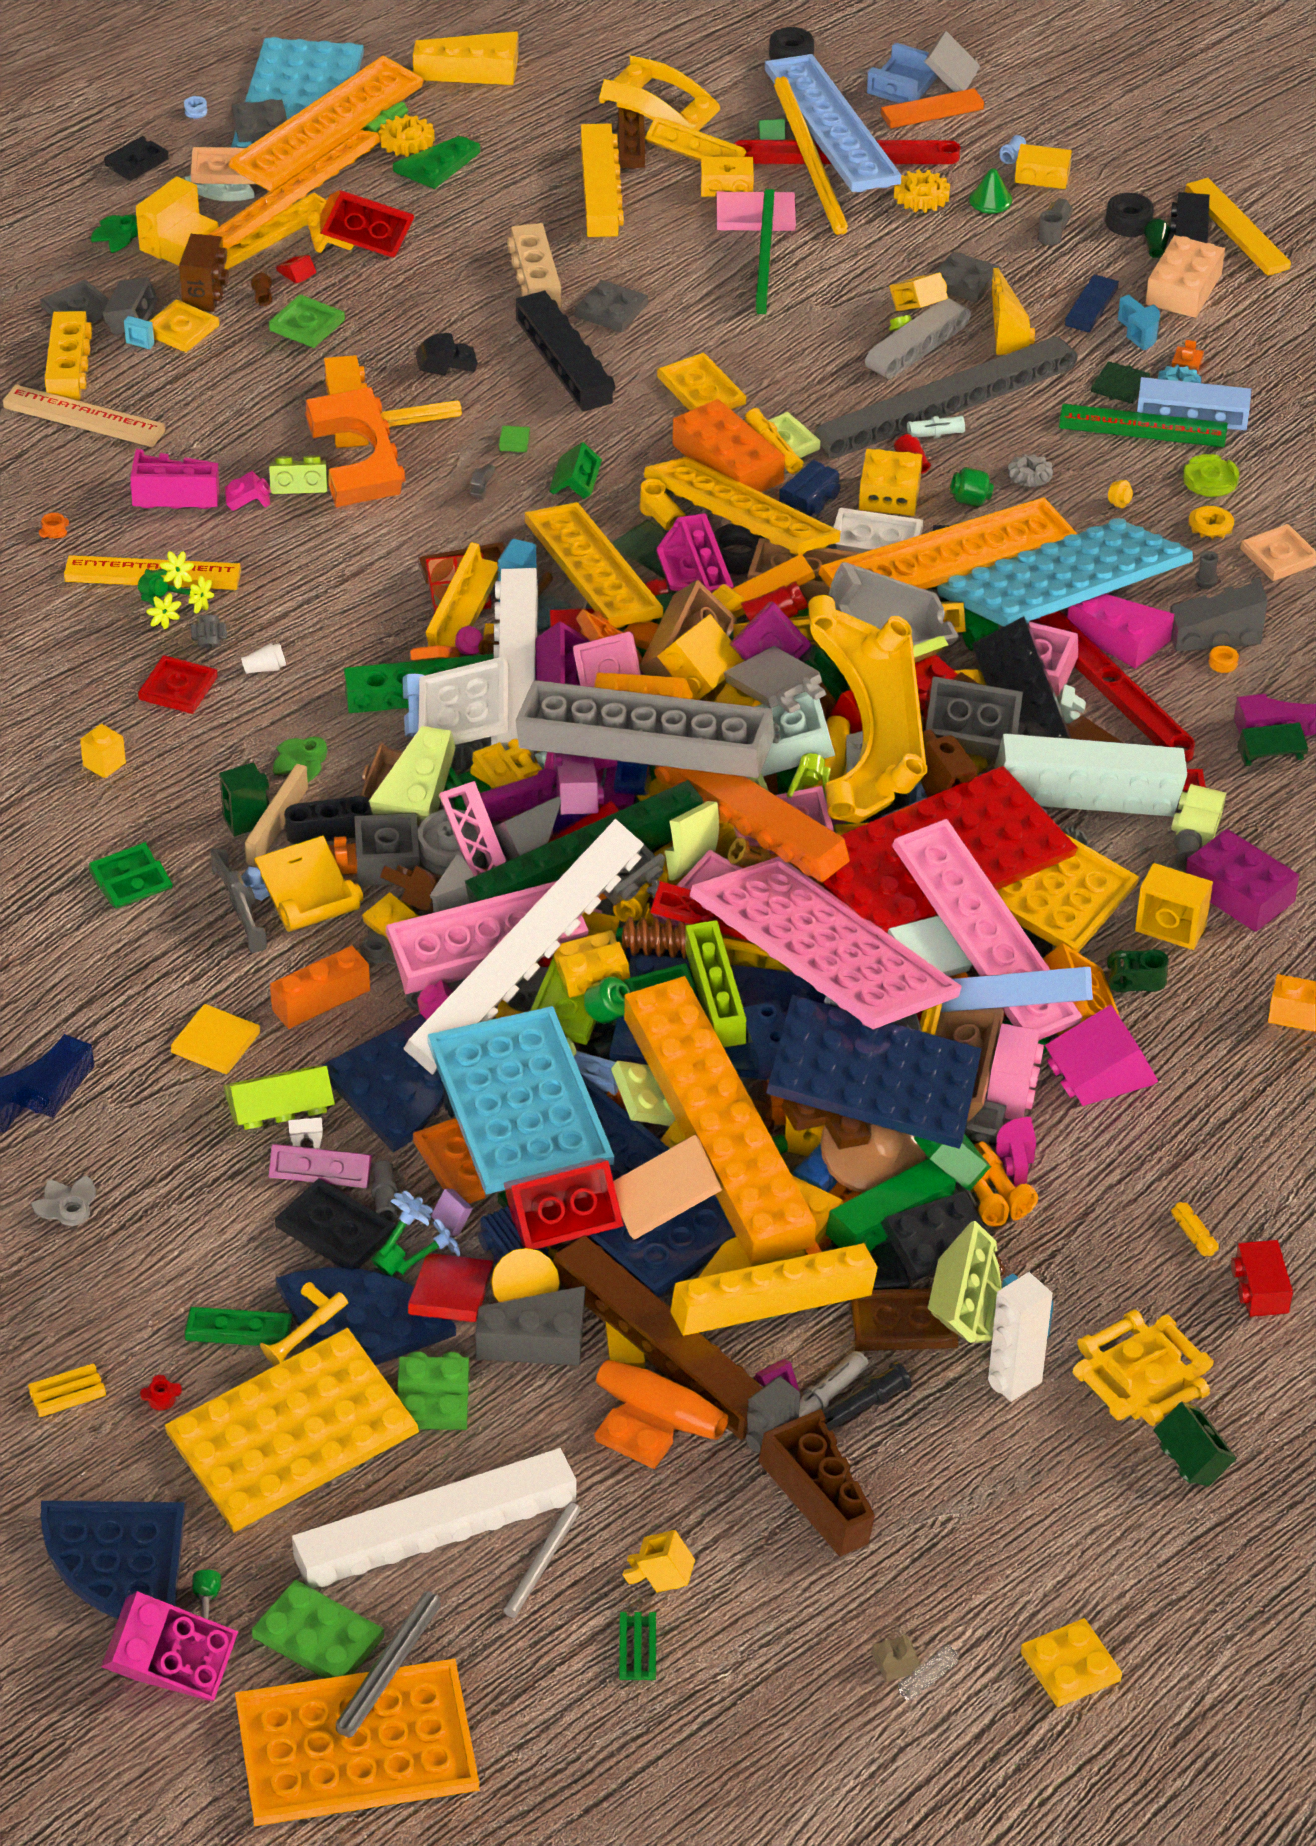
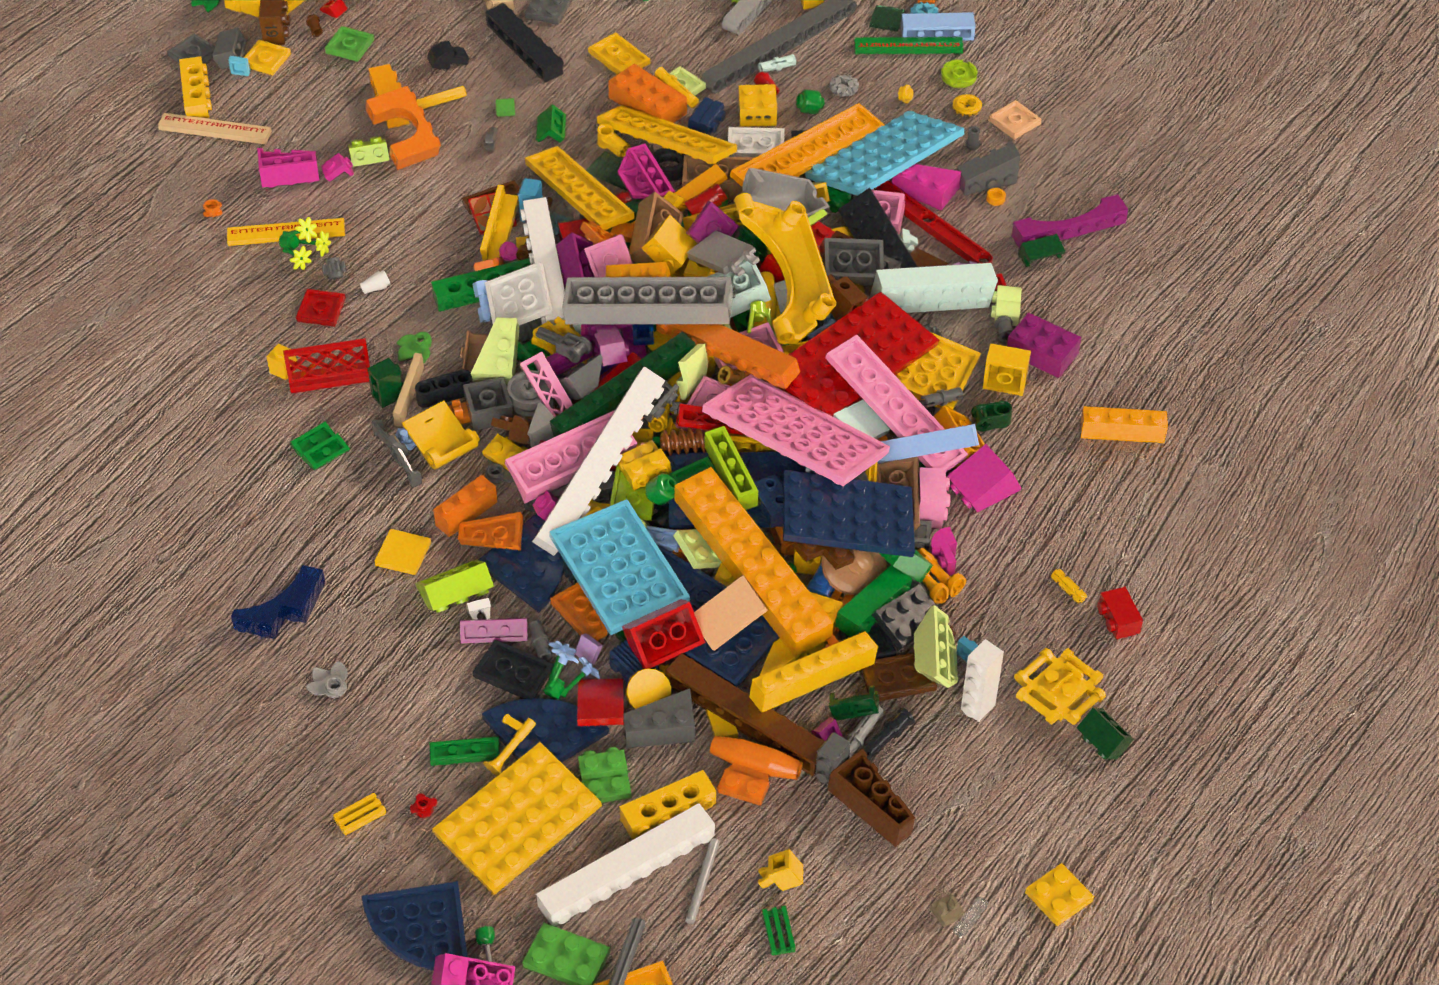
camera: 10 degrees left, 5 degrees up
(166, 780) = (329, 374): none -> red fence
(351, 1029) = (493, 532): none -> orange wing
(514, 1440) = (675, 795): none -> yellow brick
(518, 780) = (567, 345): none -> dark grey connector
(826, 1348) = (855, 705): none -> dark green hinge
(1061, 930) = (942, 397): none -> dark grey pin

